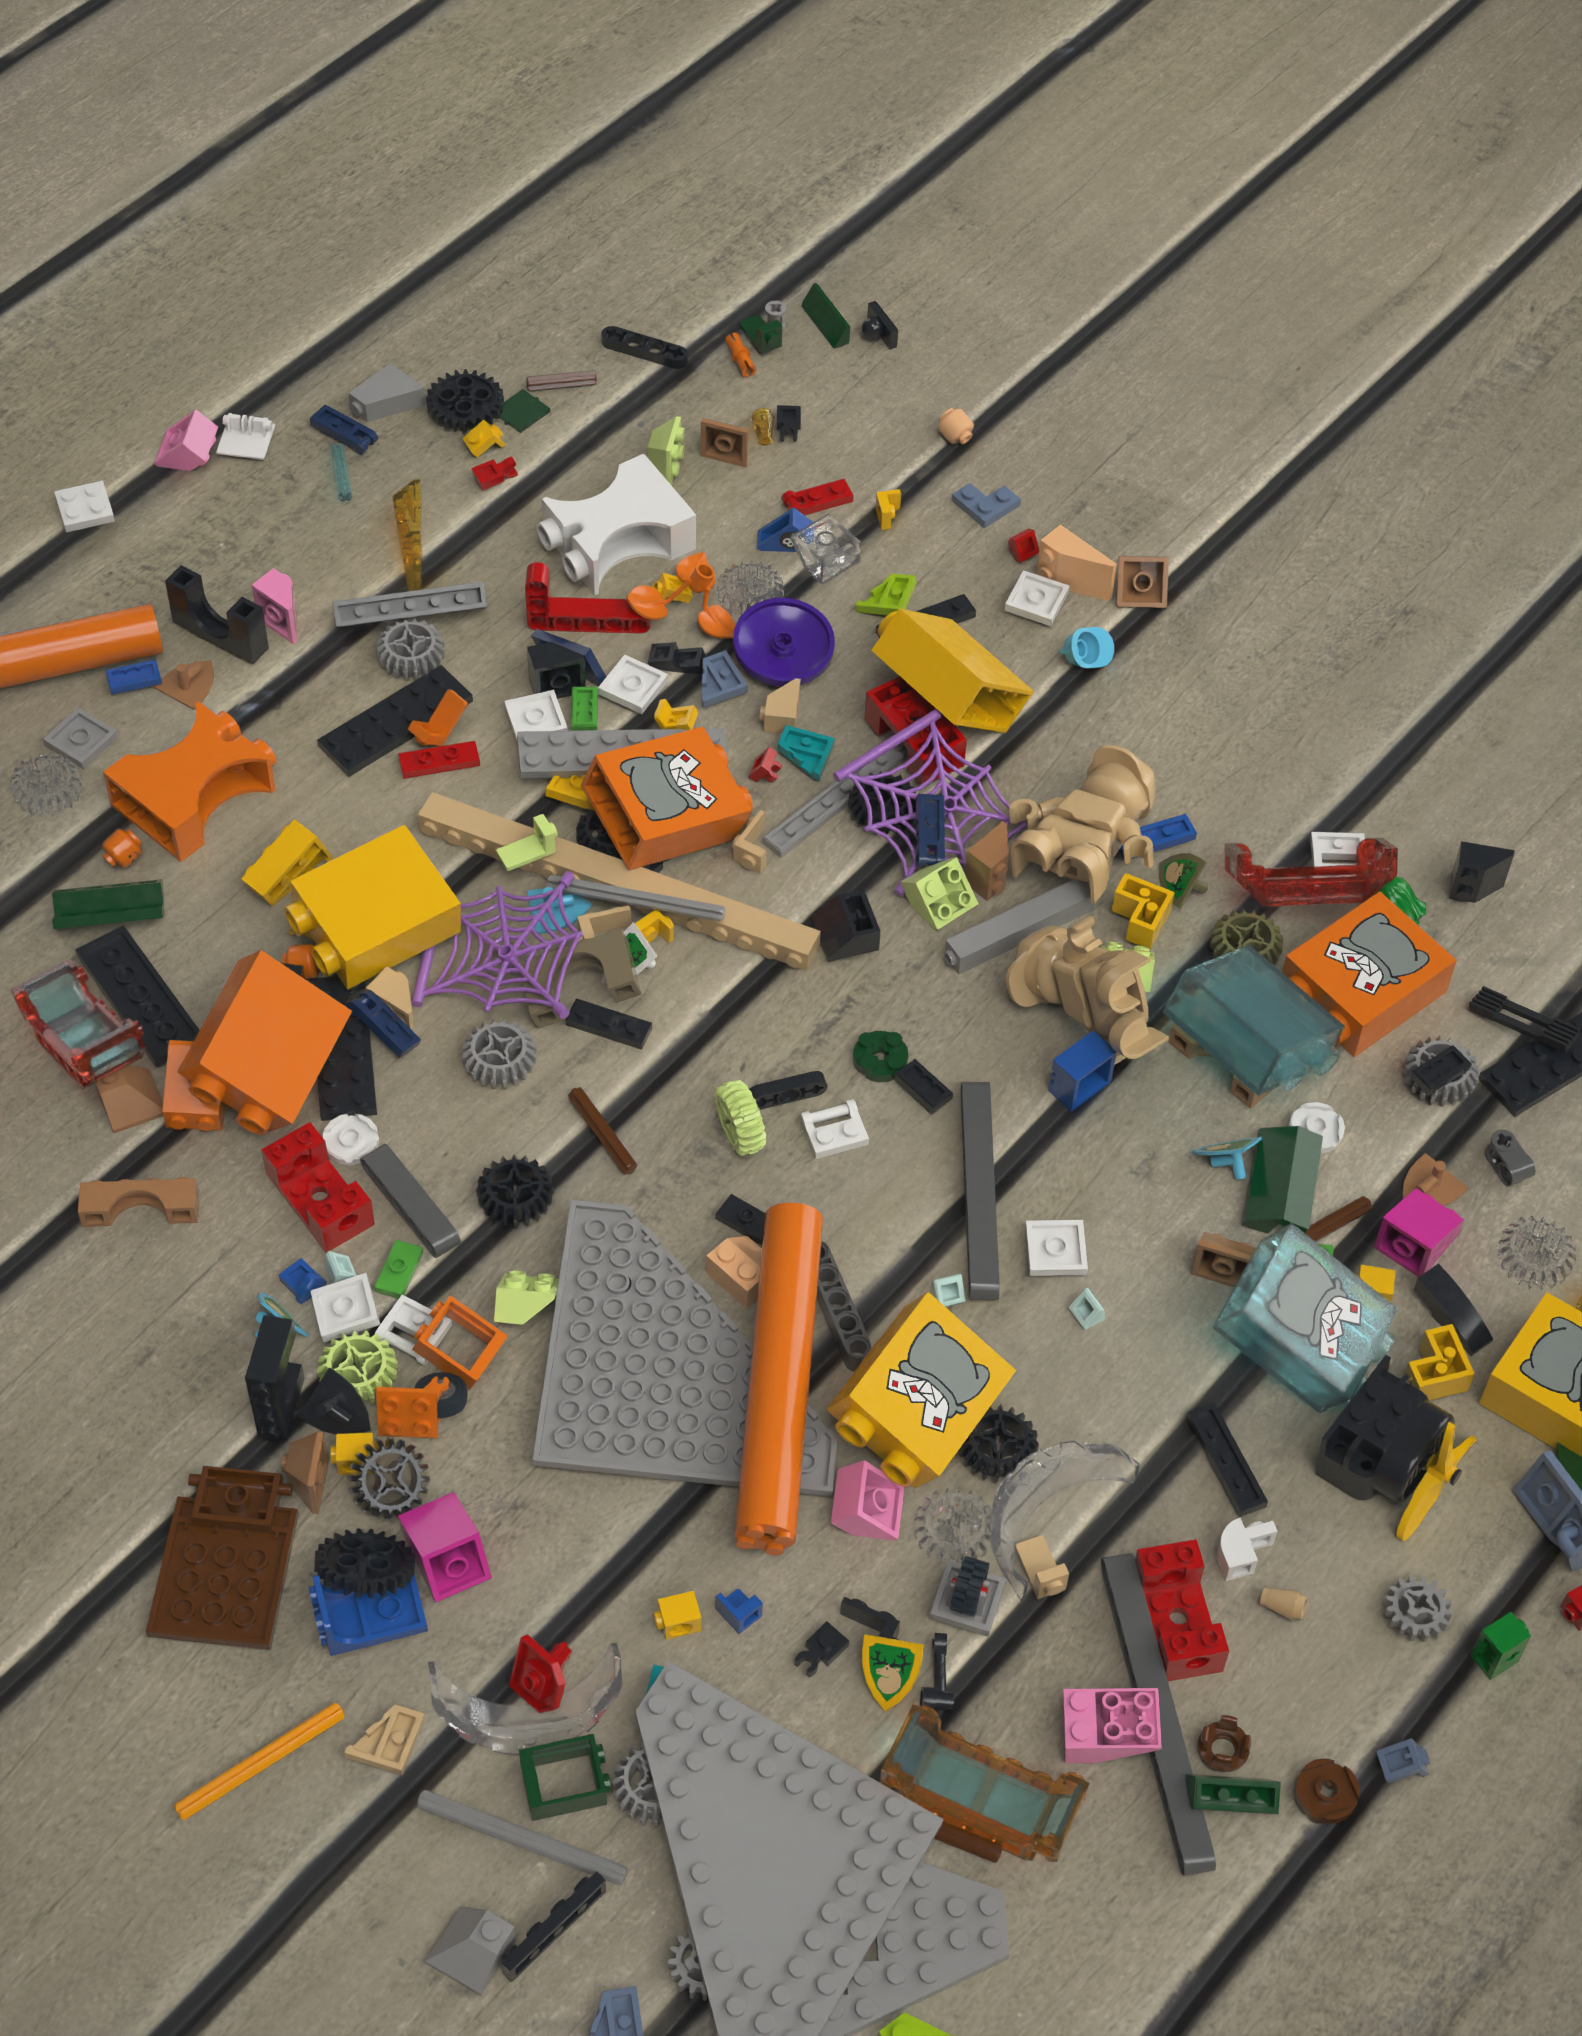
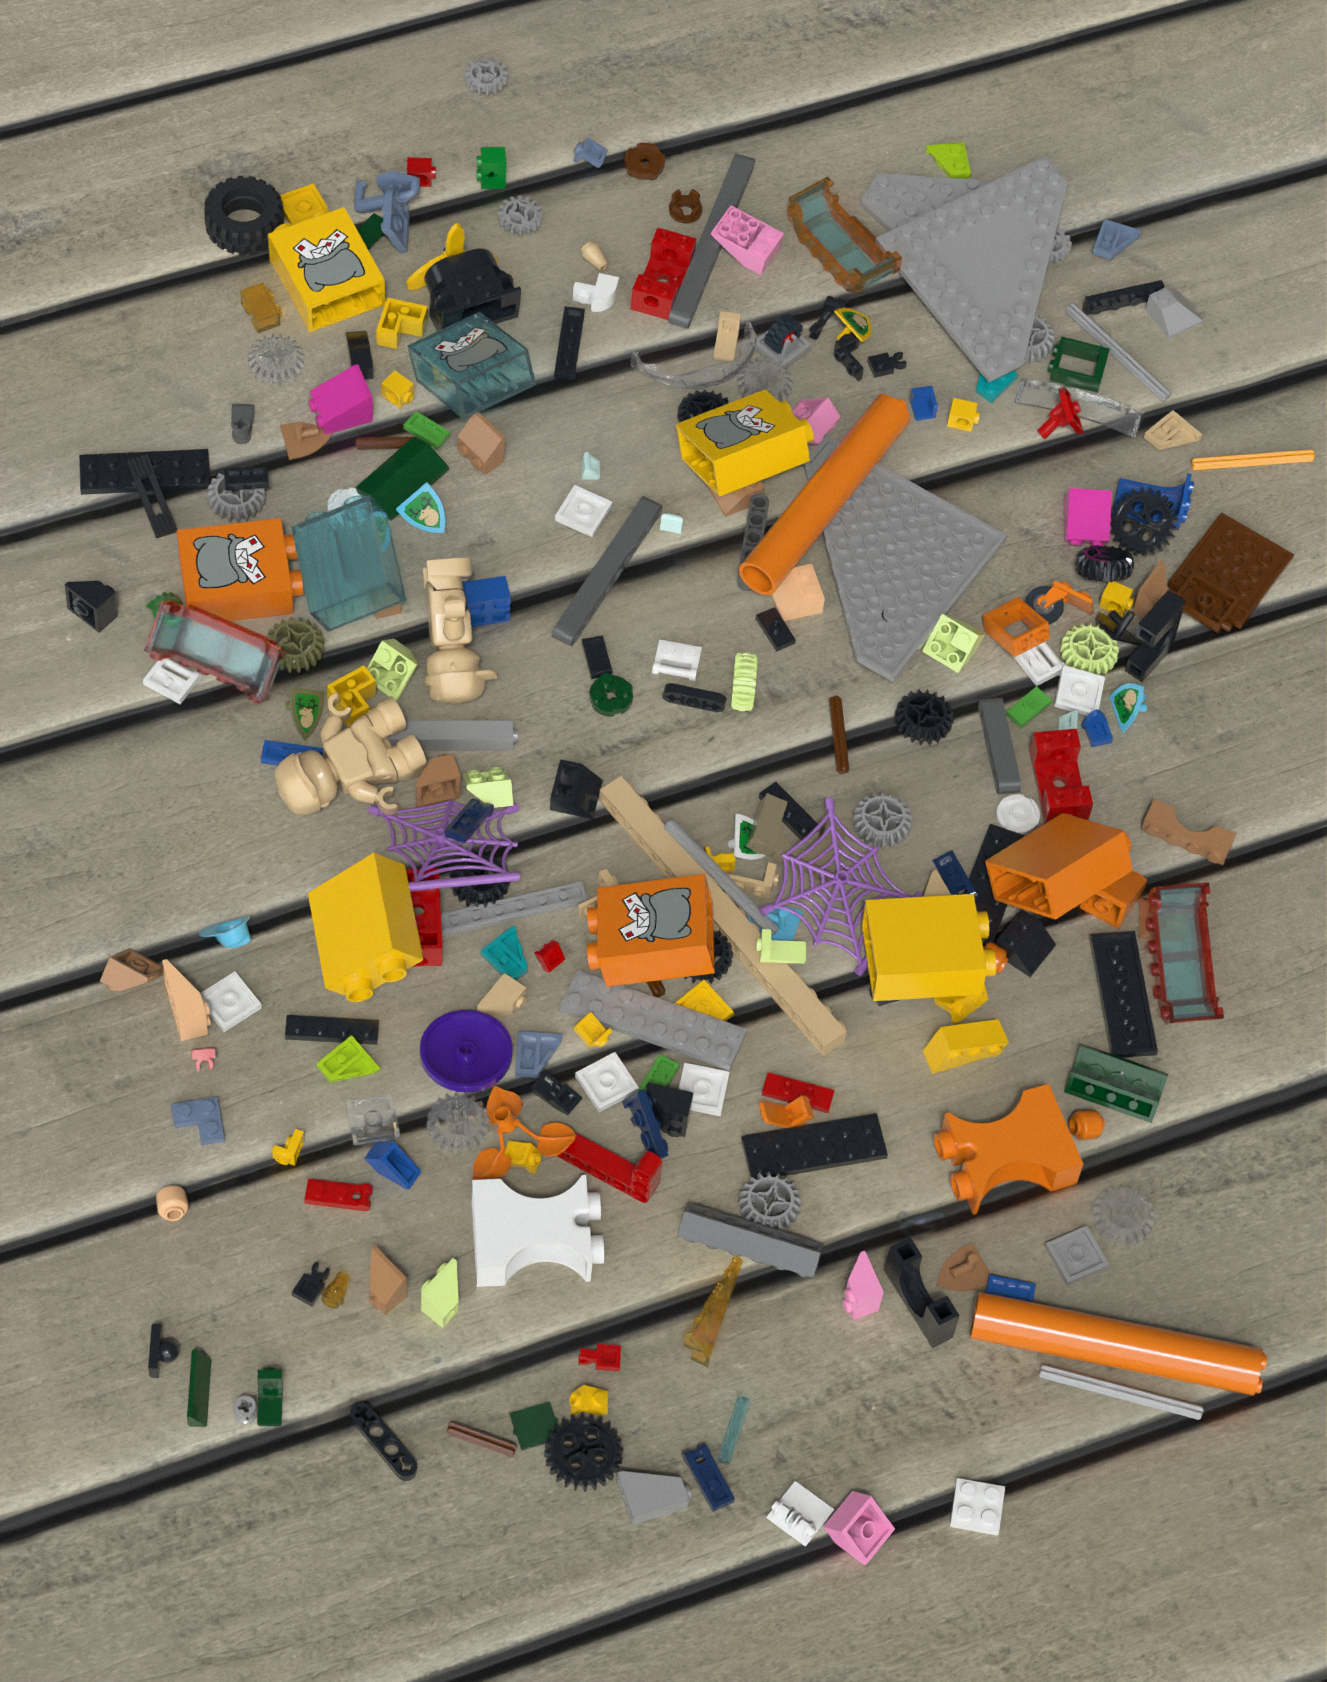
camera: 155 degrees left, 5 degrees up
(740, 354) = (304, 1384): orange pin -> none
(1233, 1794) = (700, 180): dark green slope -> none

